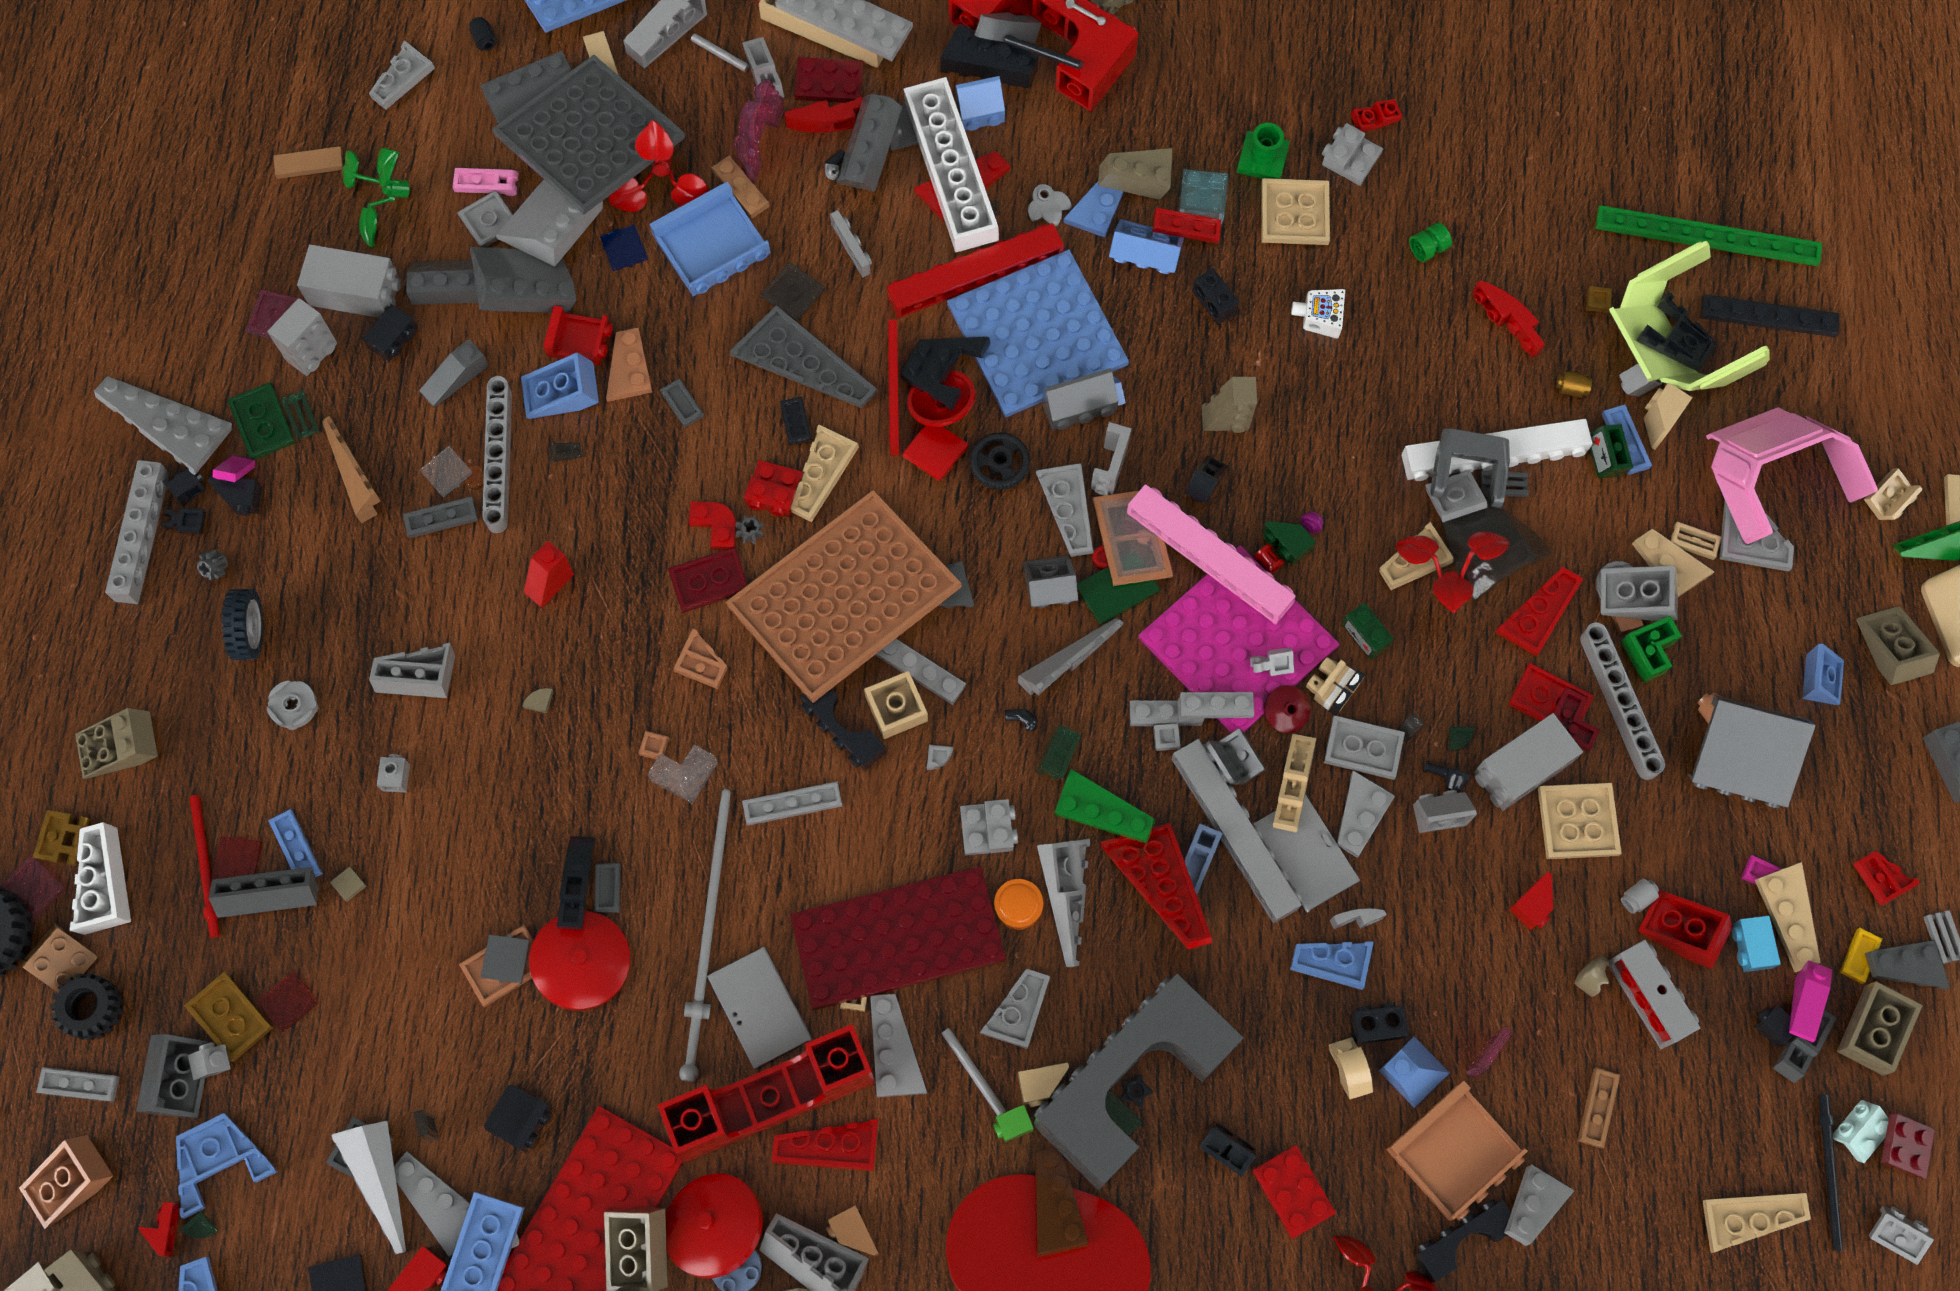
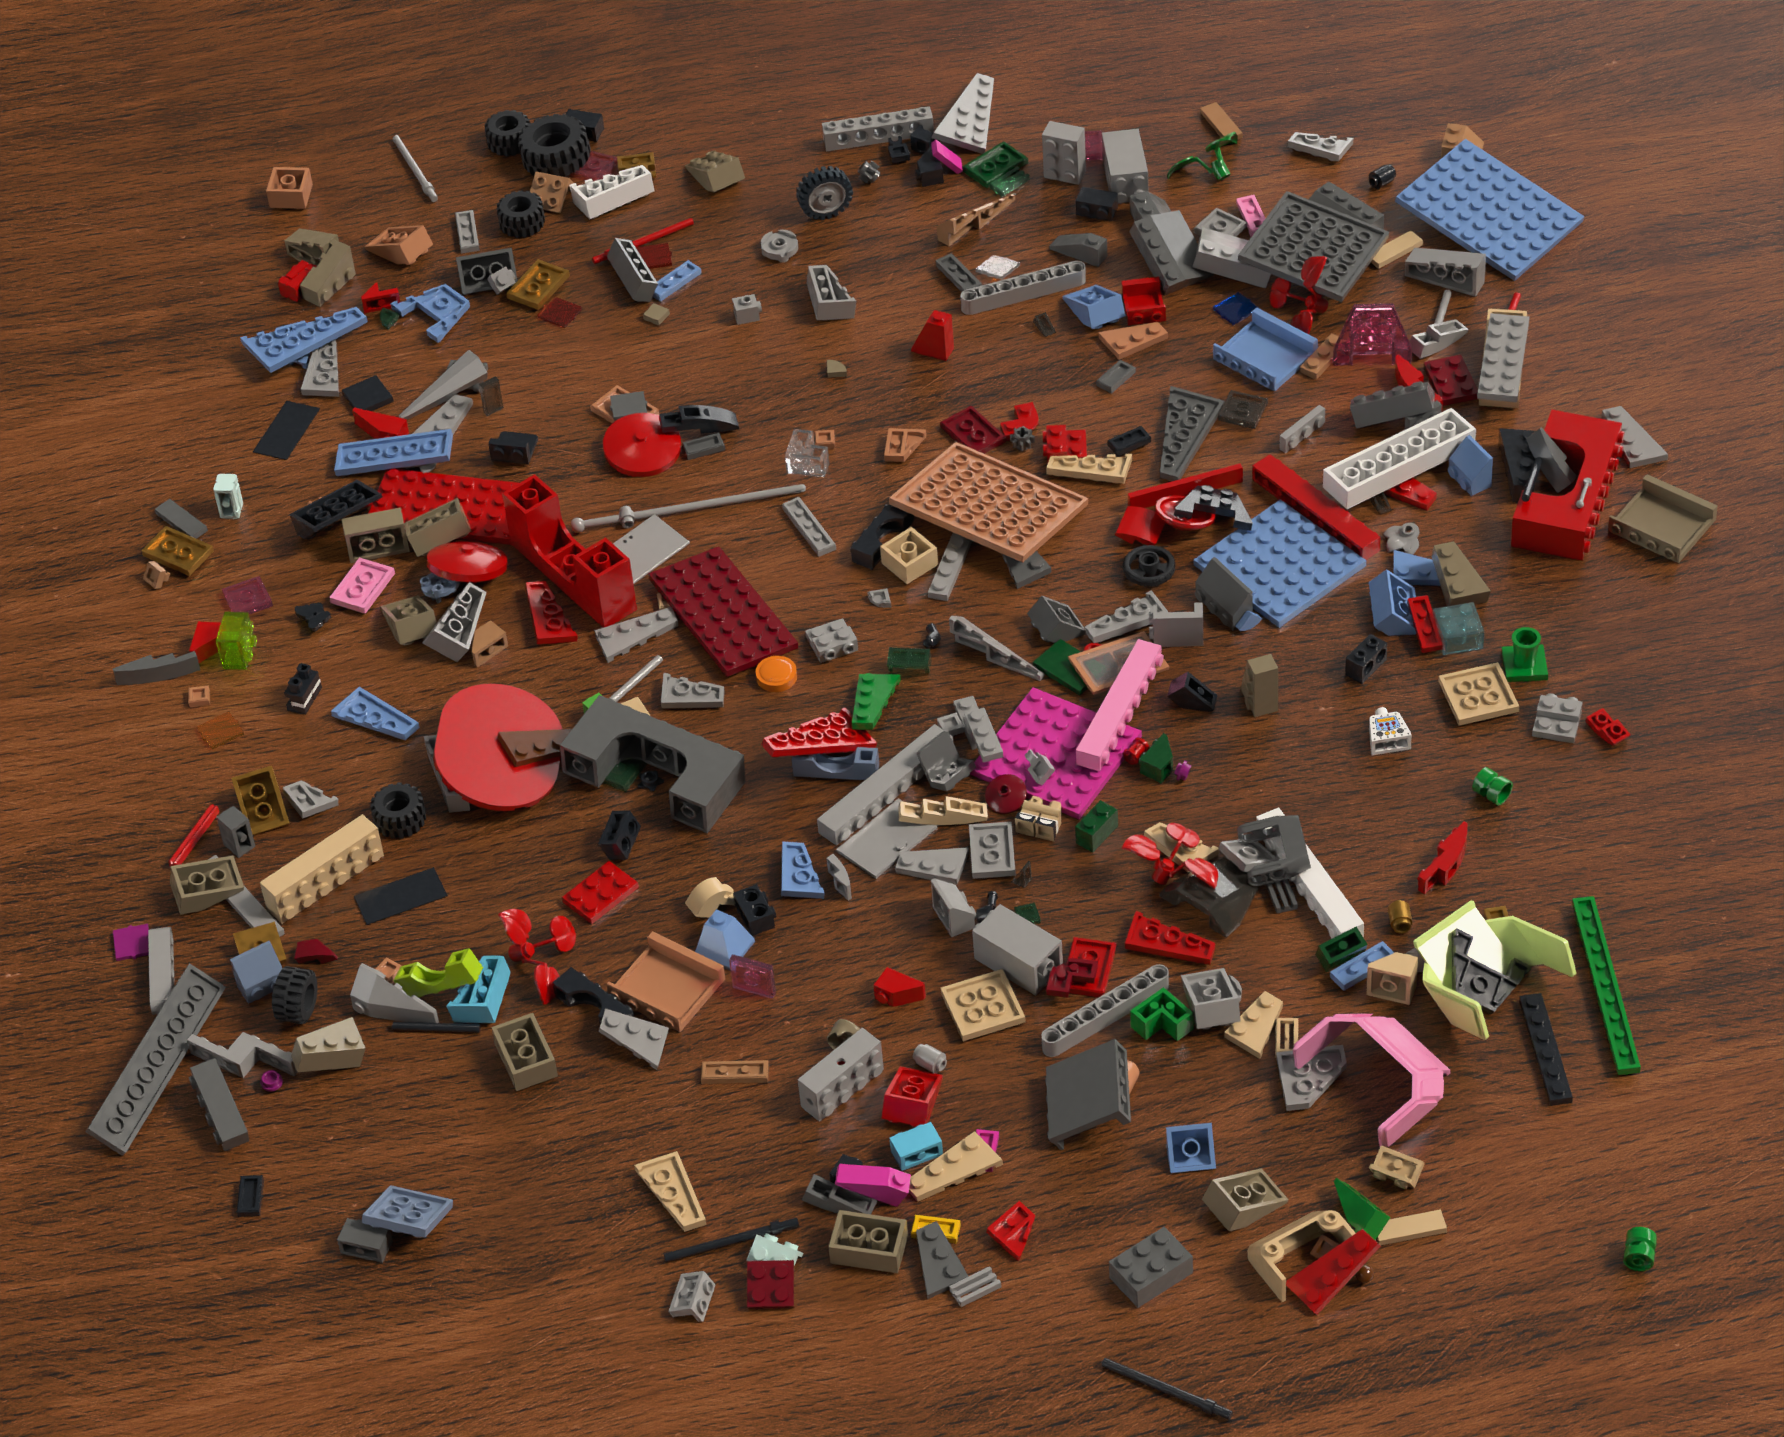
camera: 80 degrees right, 25 degrees down
(1064, 872) = (808, 694): light grey wedge -> none

